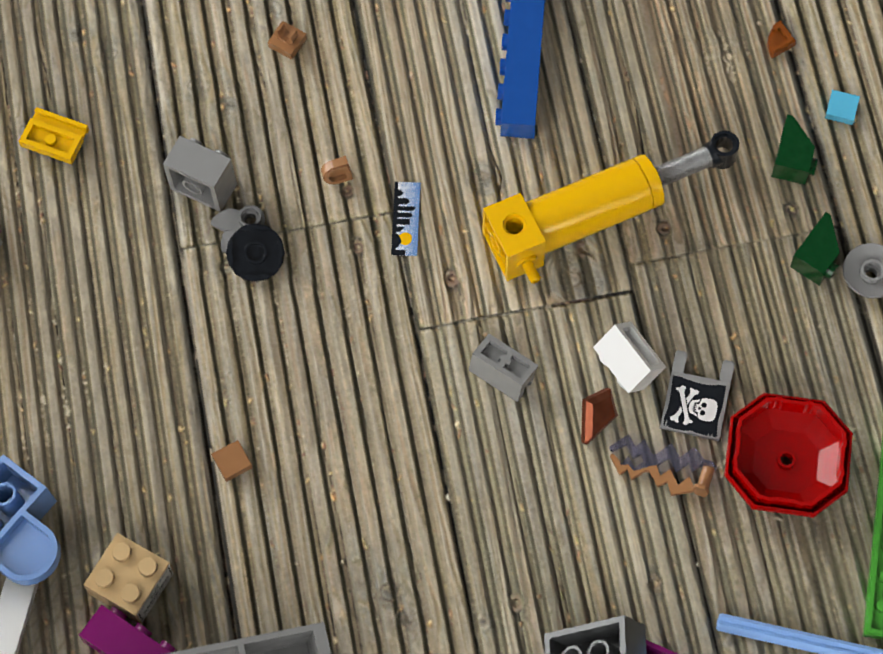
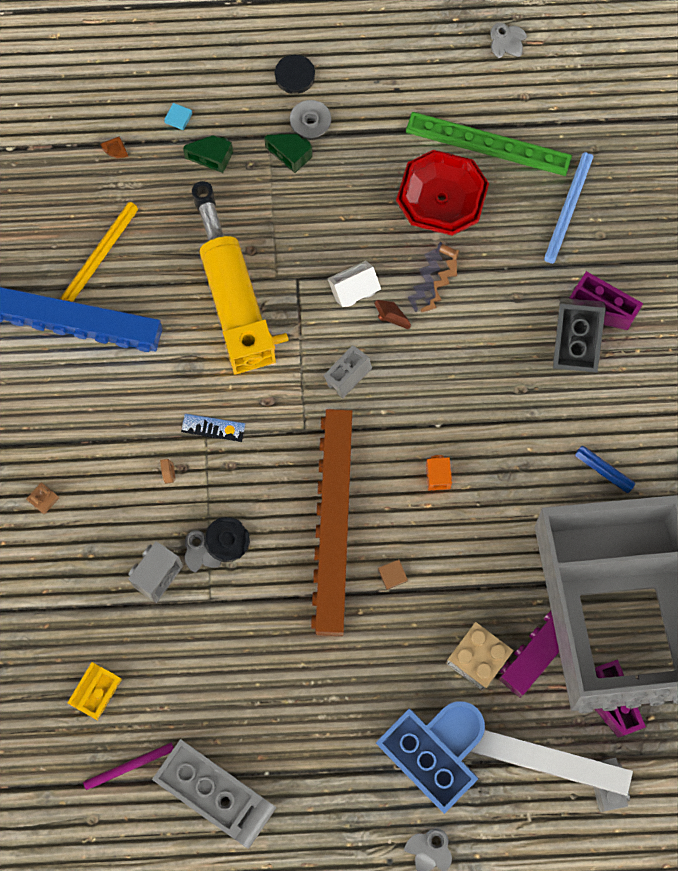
camera: 85 degrees left, 5 degrees up
(293, 376) = (334, 523): none -> dark orange brick
(375, 500) = (438, 473): none -> orange brick
(622, 46) = (99, 252): none -> yellow axle
(694, 402) = (389, 249): flag -> none

